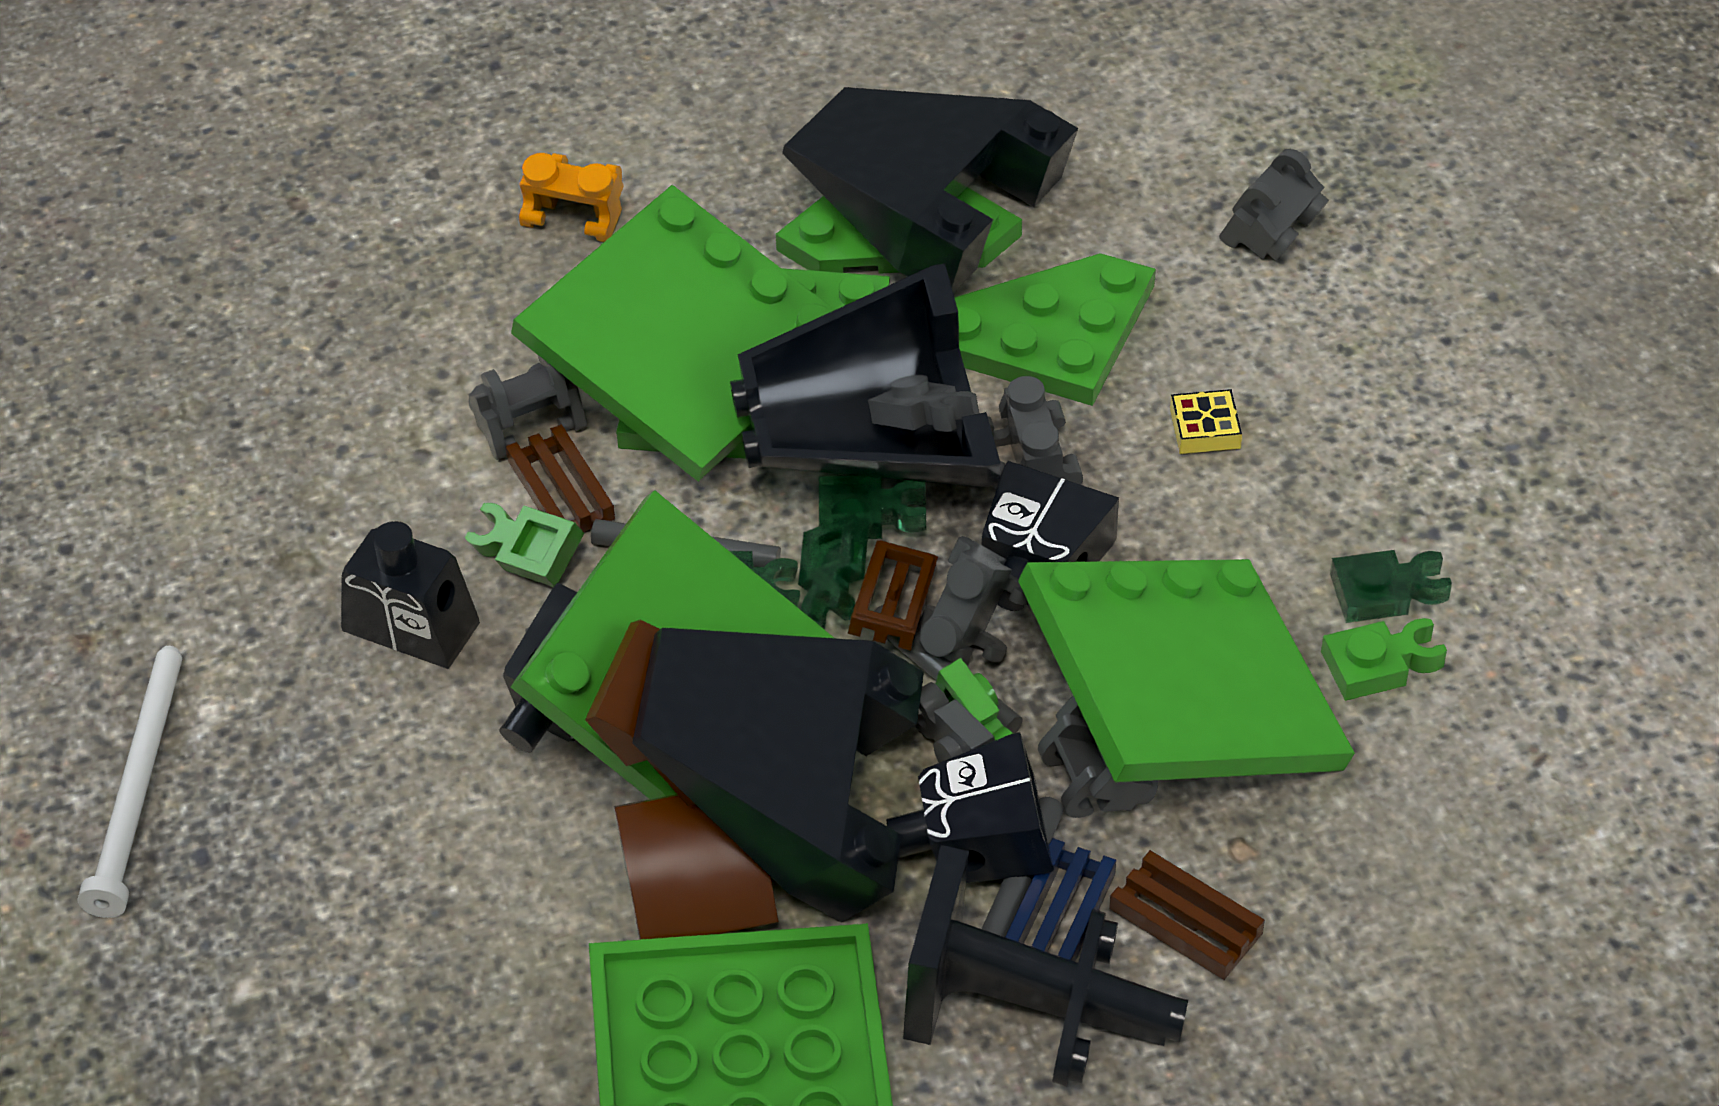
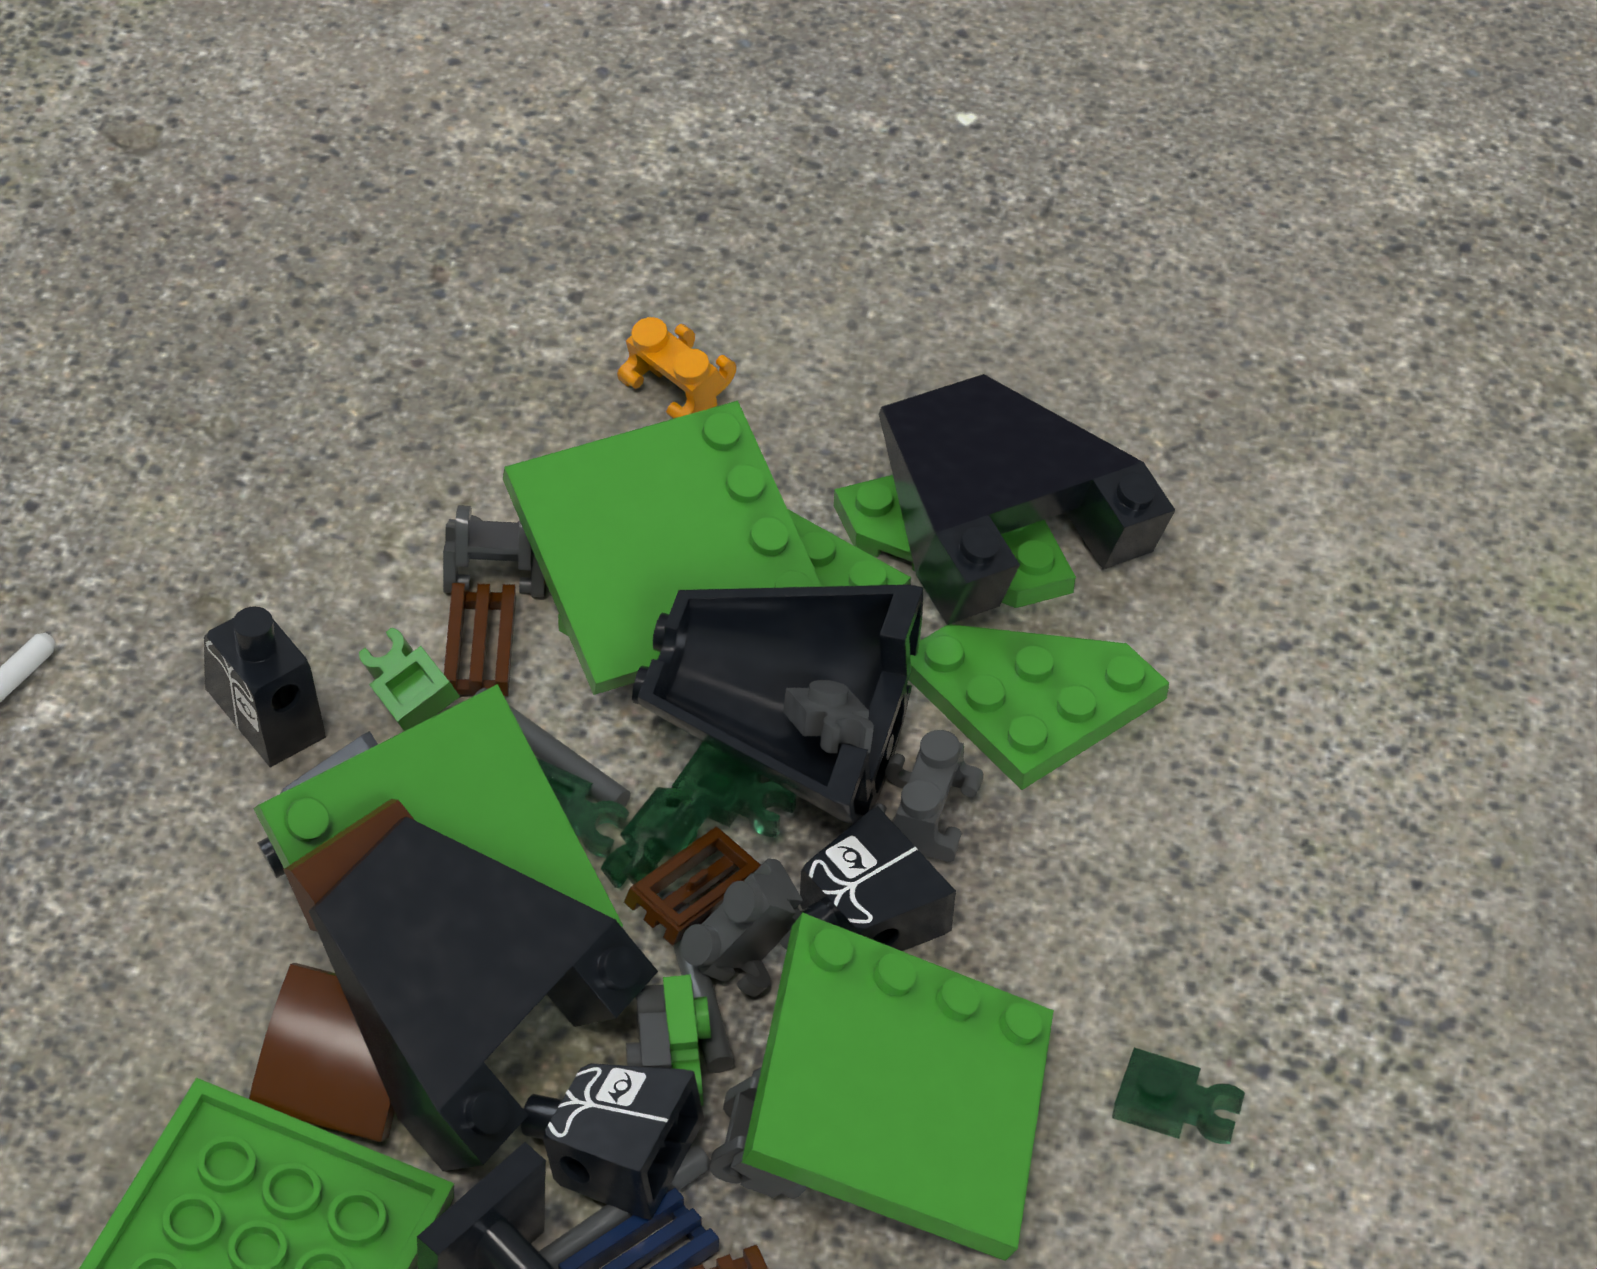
camera: 25 degrees right, 0 degrees up
(1205, 421) = (1113, 855): light yellow tile -> none
(1274, 204) = (1328, 671): dark grey piece -> none
(1374, 661) = (1105, 1165): bright green plate -> none

